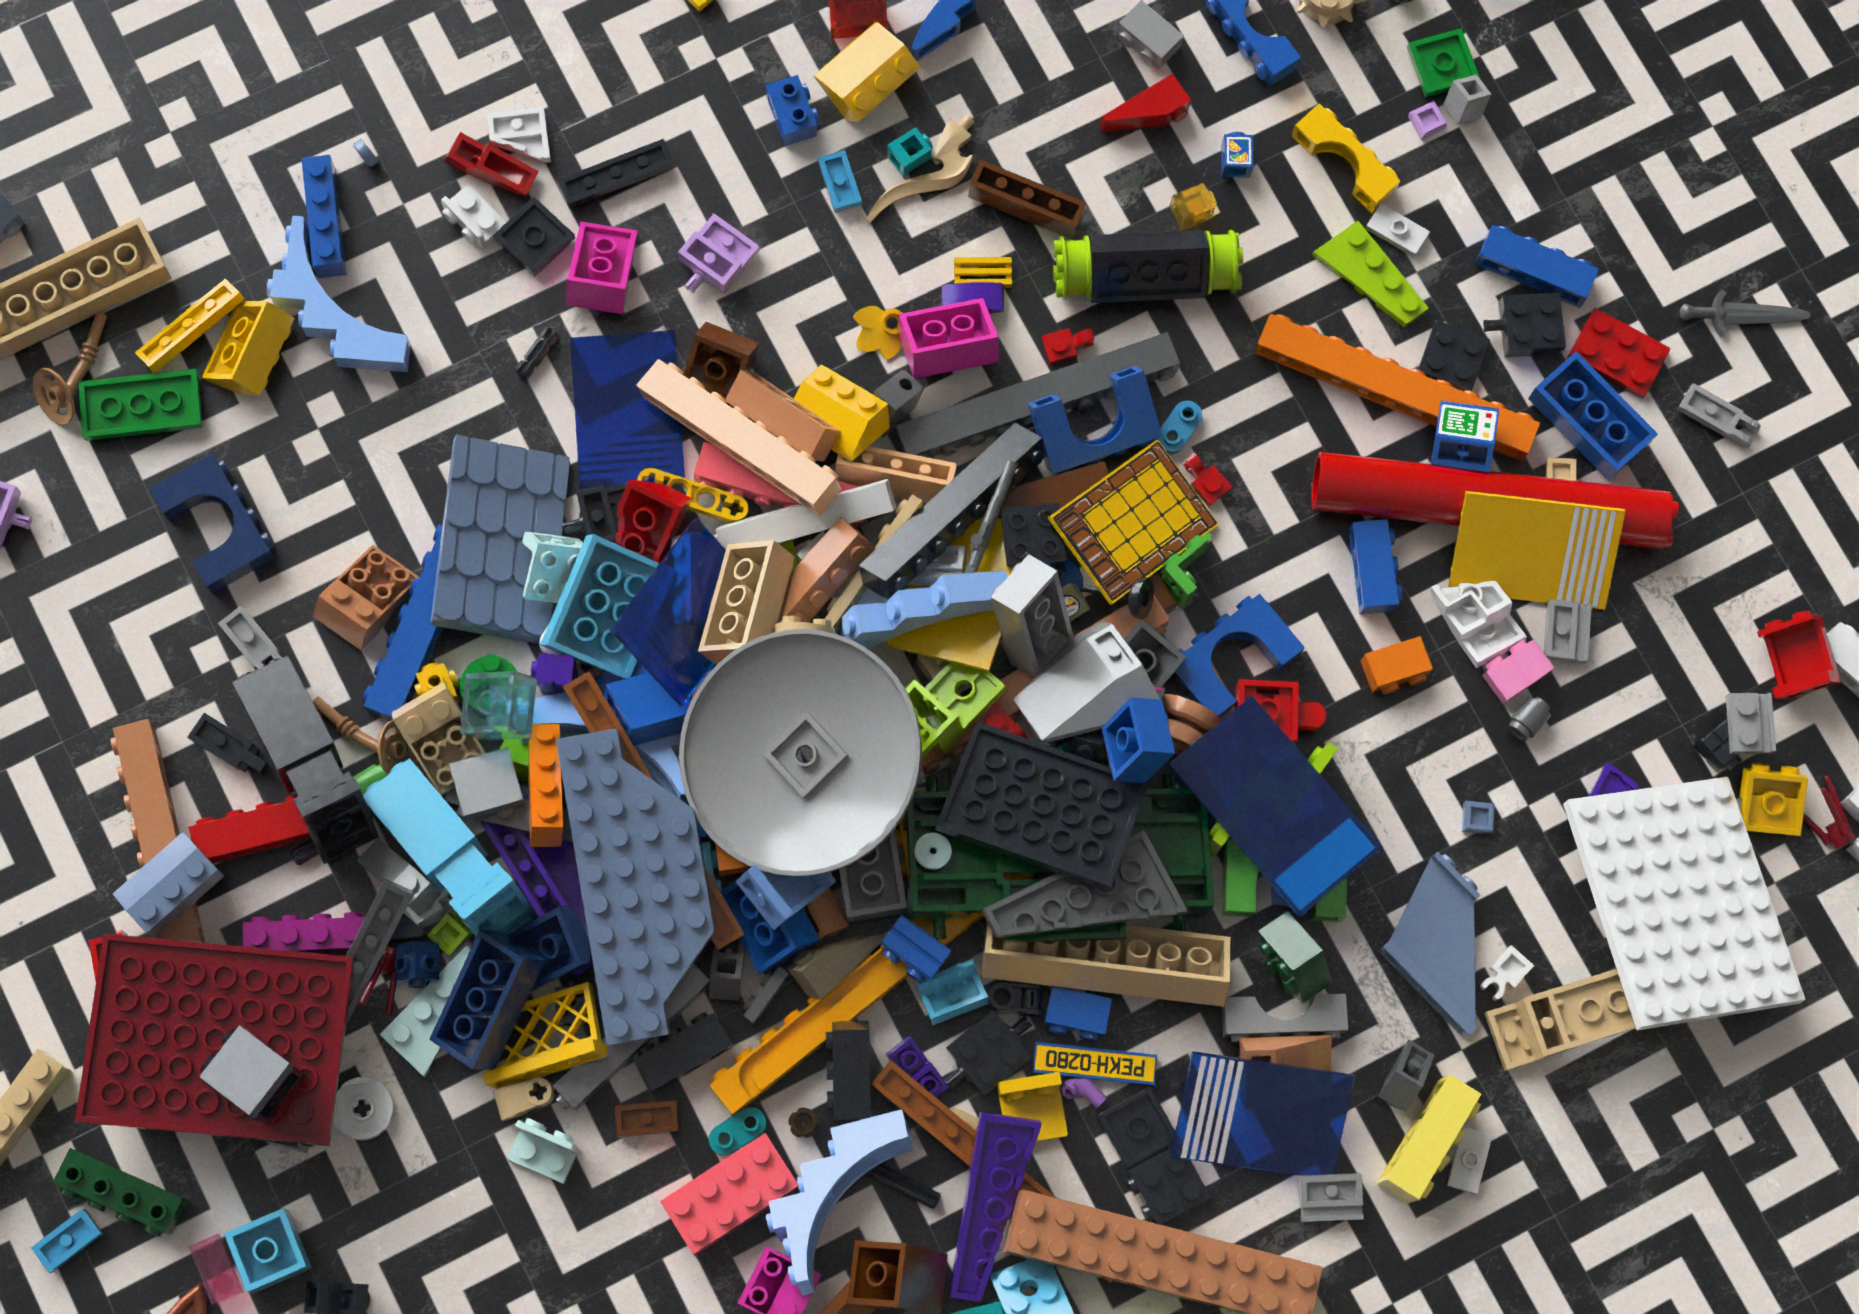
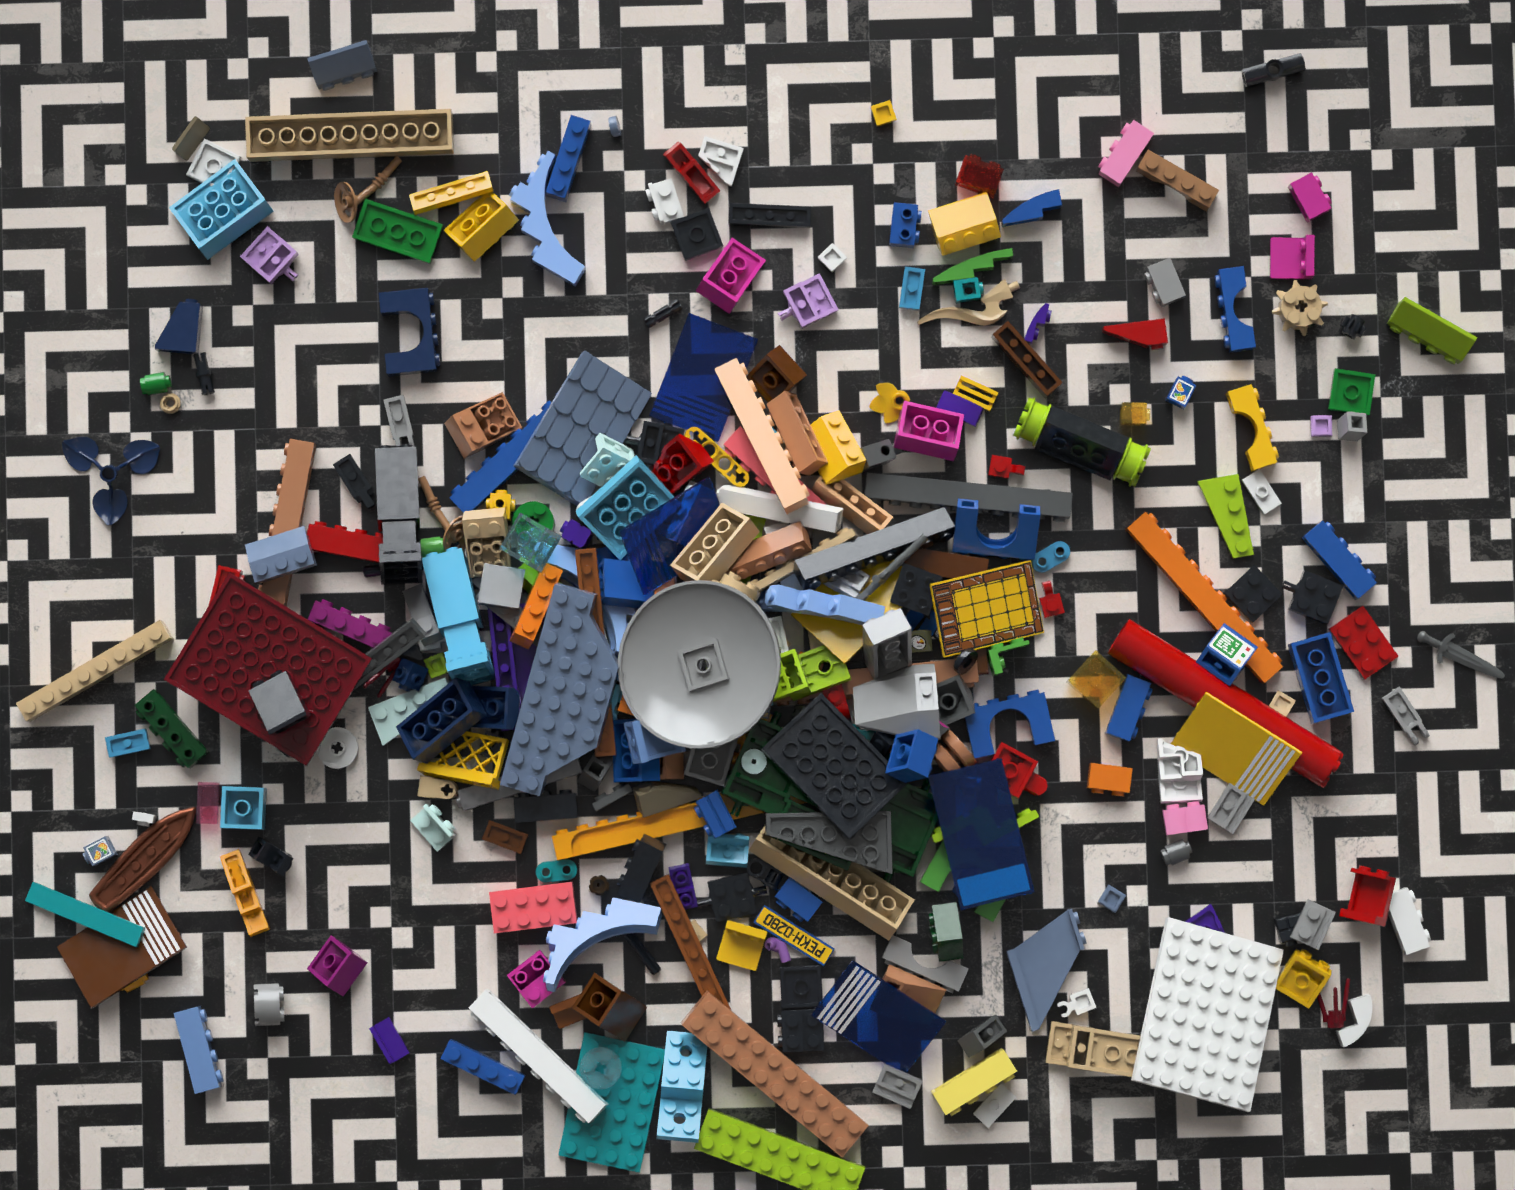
camera: 35 degrees right, 10 degrees up
(720, 189) = (832, 257): none -> white plate
(902, 119) = (967, 268): none -> bright green slope
(995, 1175) = (697, 975): dark purple wing -> none
(1018, 149) = (1039, 319): none -> dark purple slope
(1316, 548) = (1096, 679): none -> clear yellow brick

